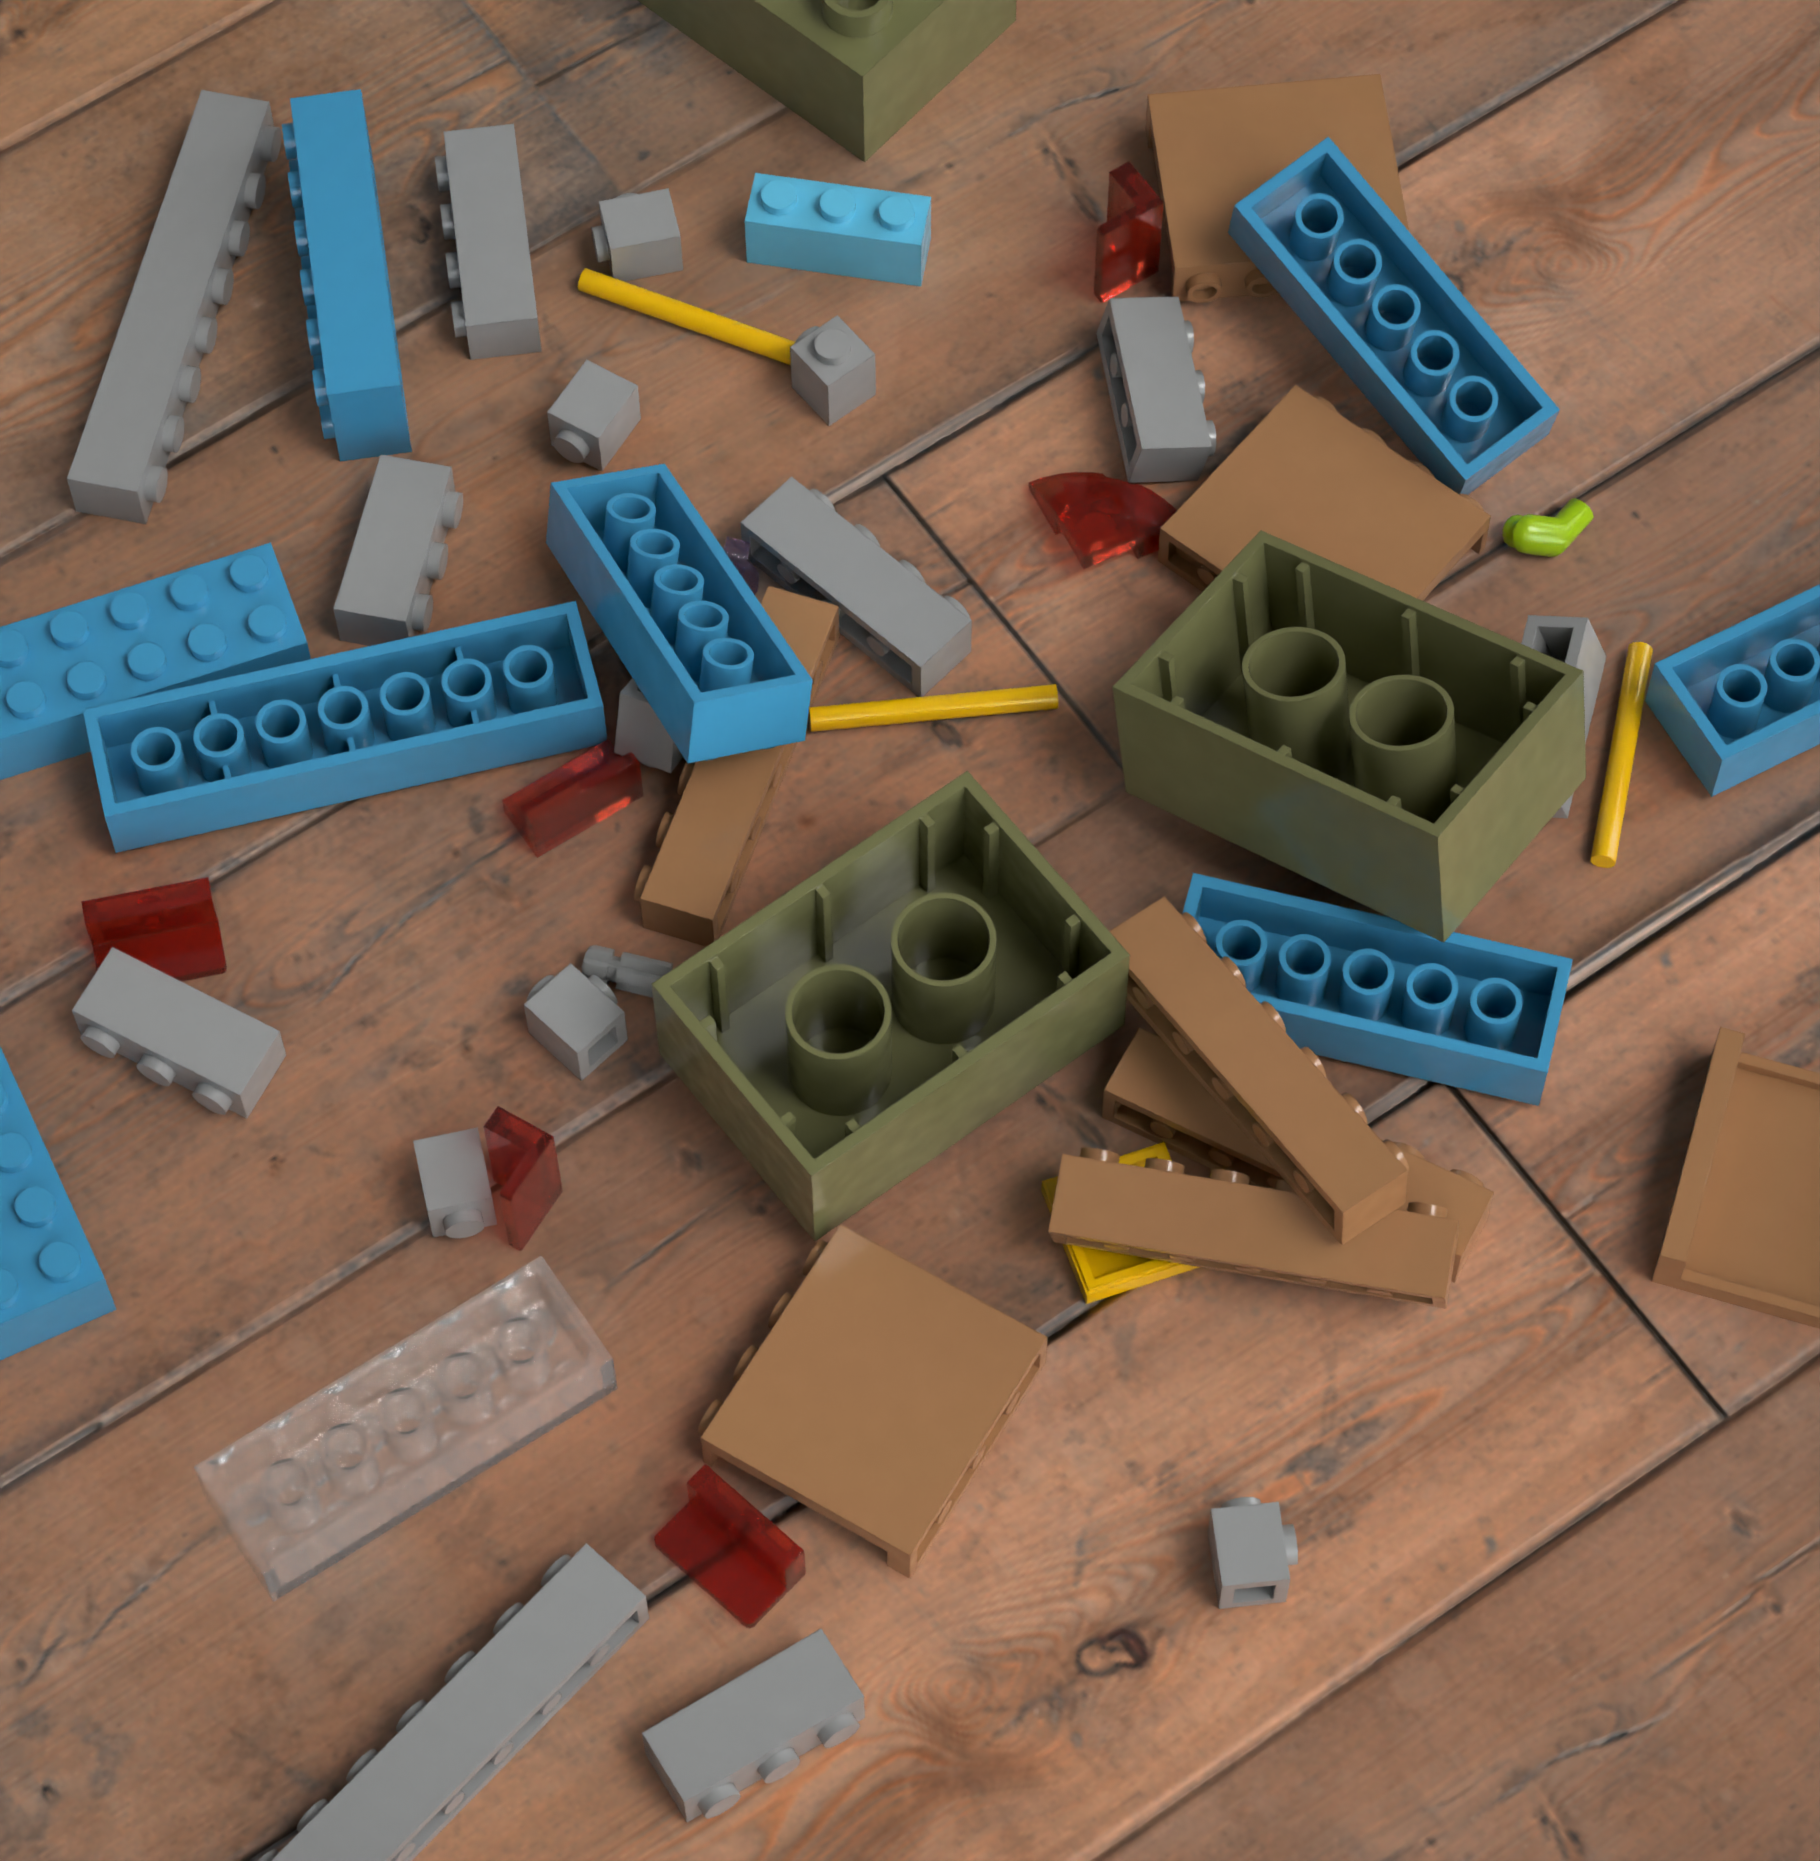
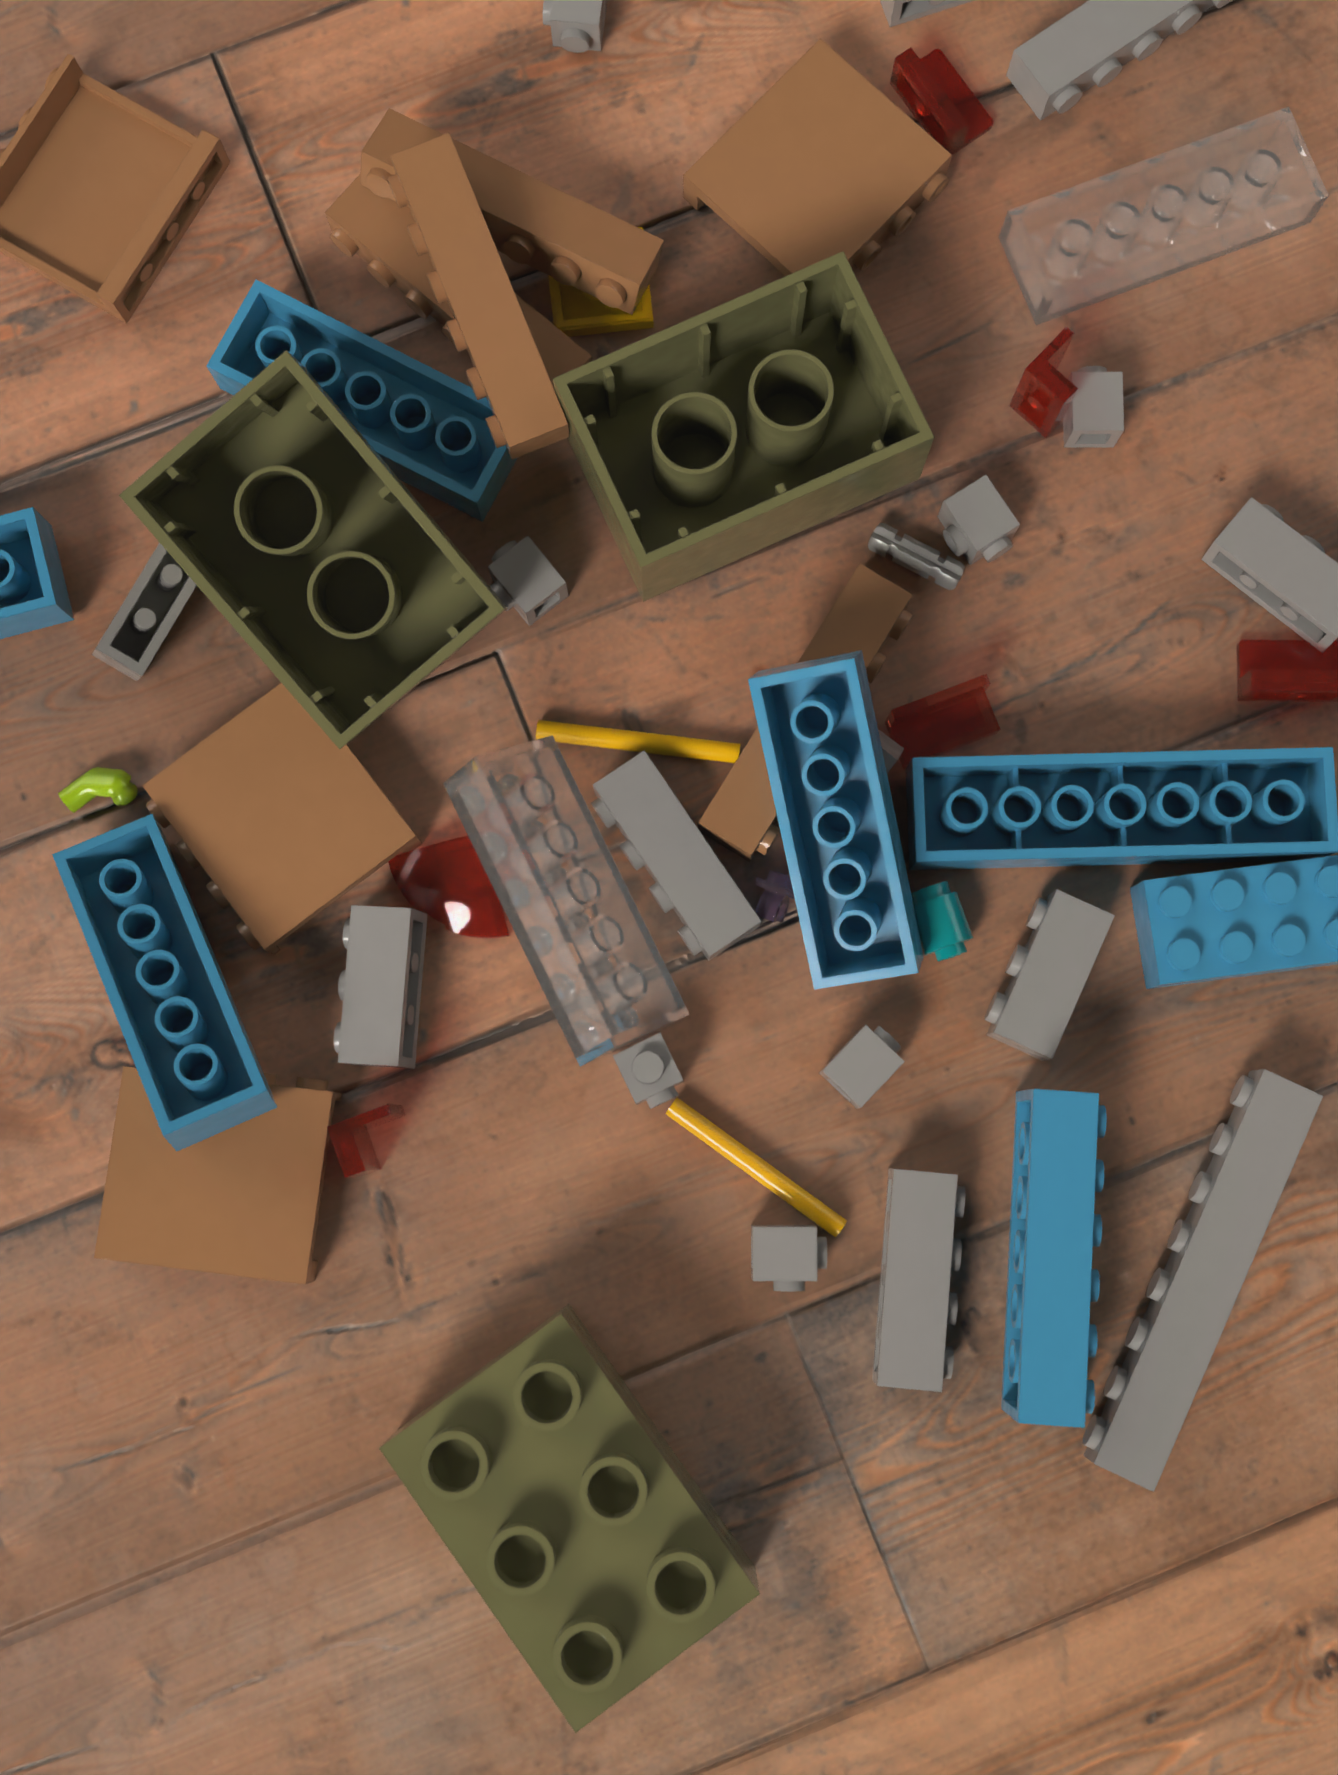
camera: 165 degrees left, 20 degrees up
(531, 575) = (941, 921): none -> teal brick
(838, 229) = (610, 1215): medium azure brick -> none
(970, 497) = (565, 898): none -> clear brick
(1113, 840) = (526, 580): none -> light grey brick
(1621, 755) = (100, 593): yellow bar -> none

